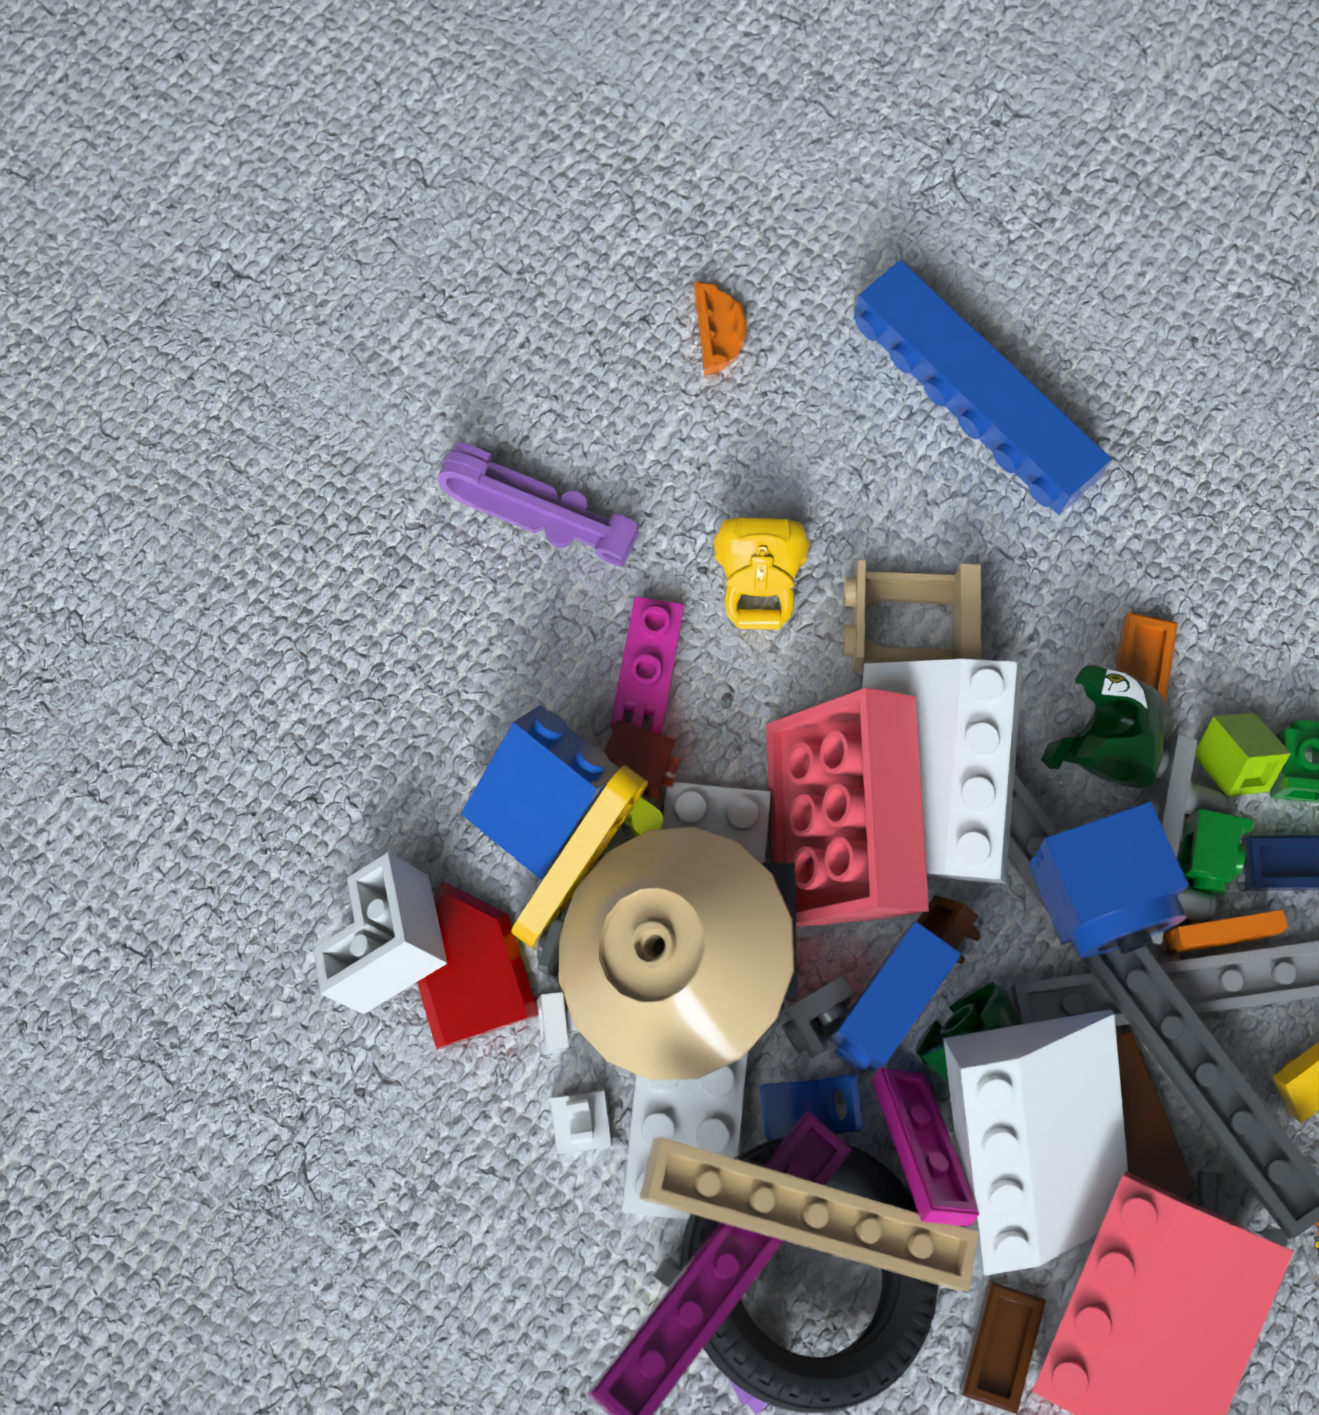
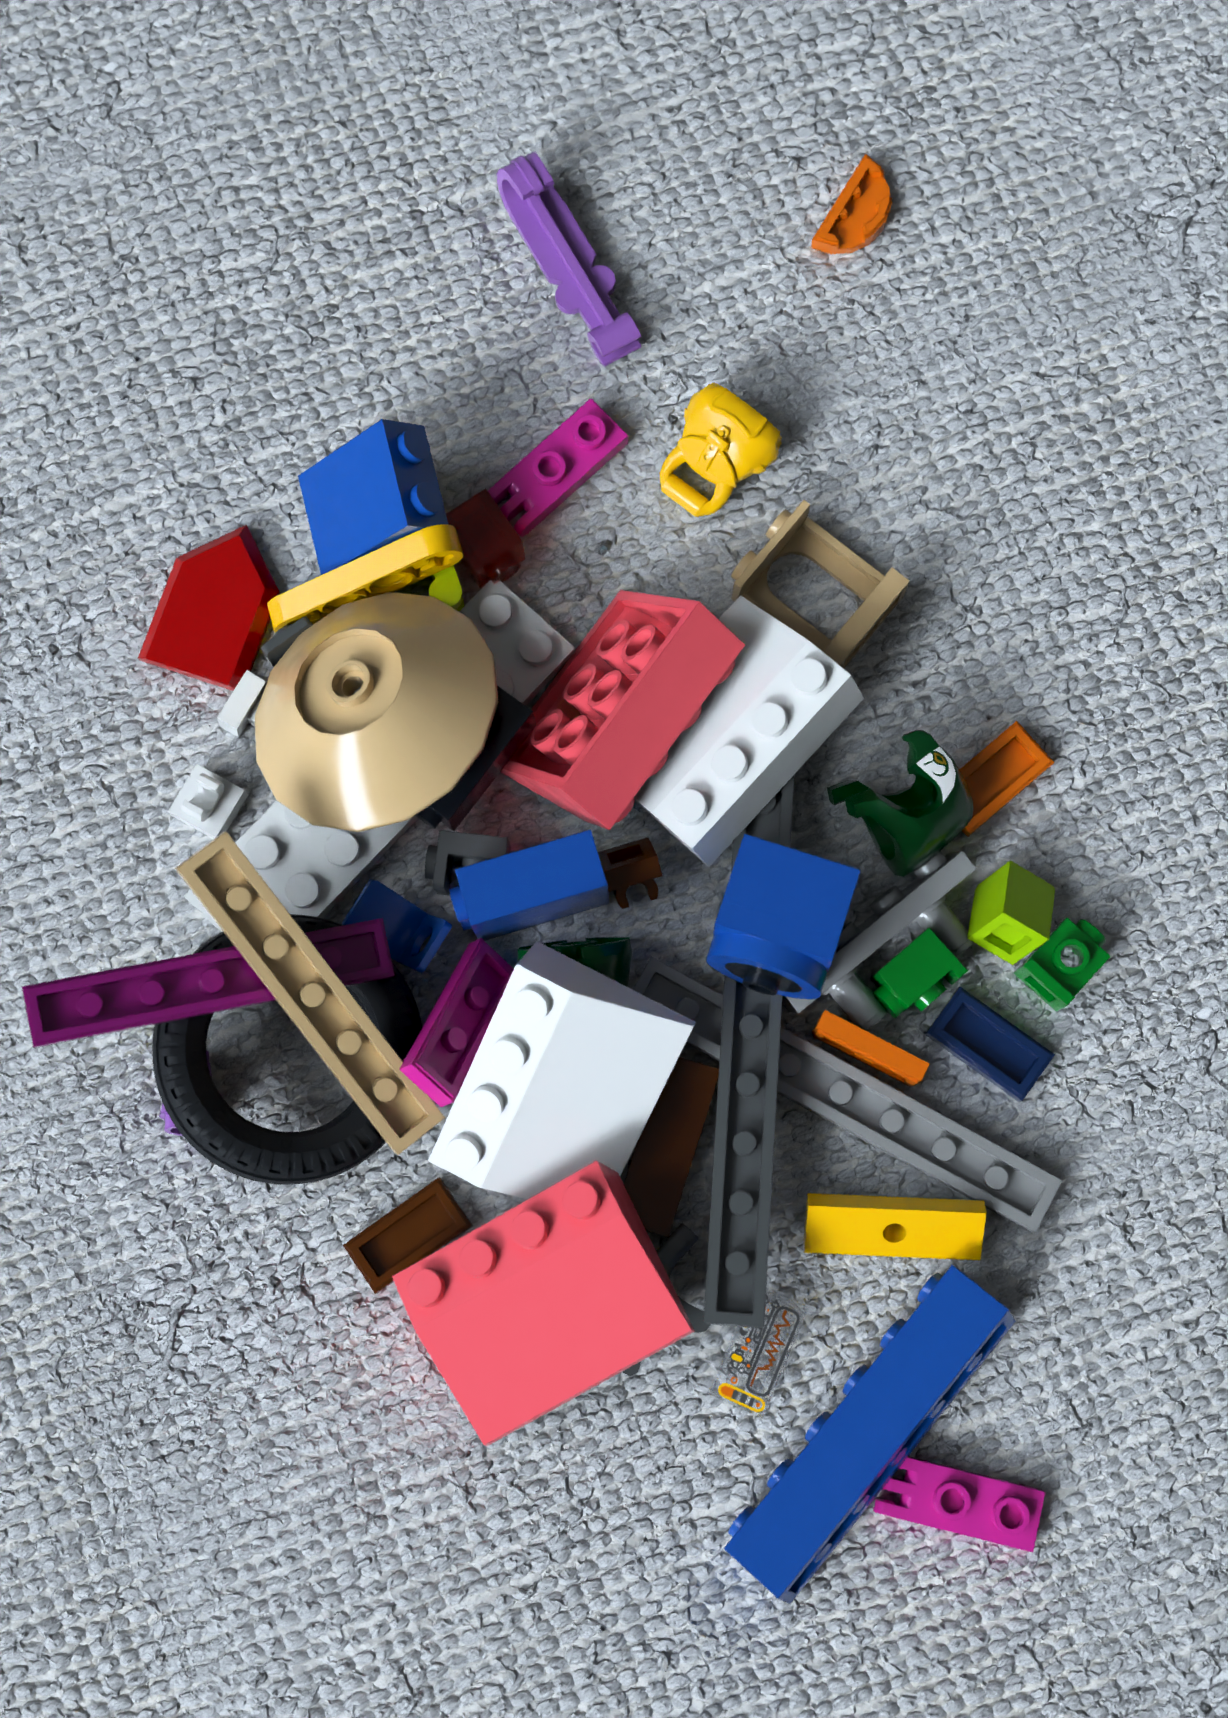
camera: 40 degrees right, 5 degrees up
(391, 938) = (159, 535): white brick -> none
(979, 388) = (1045, 427): blue brick -> none

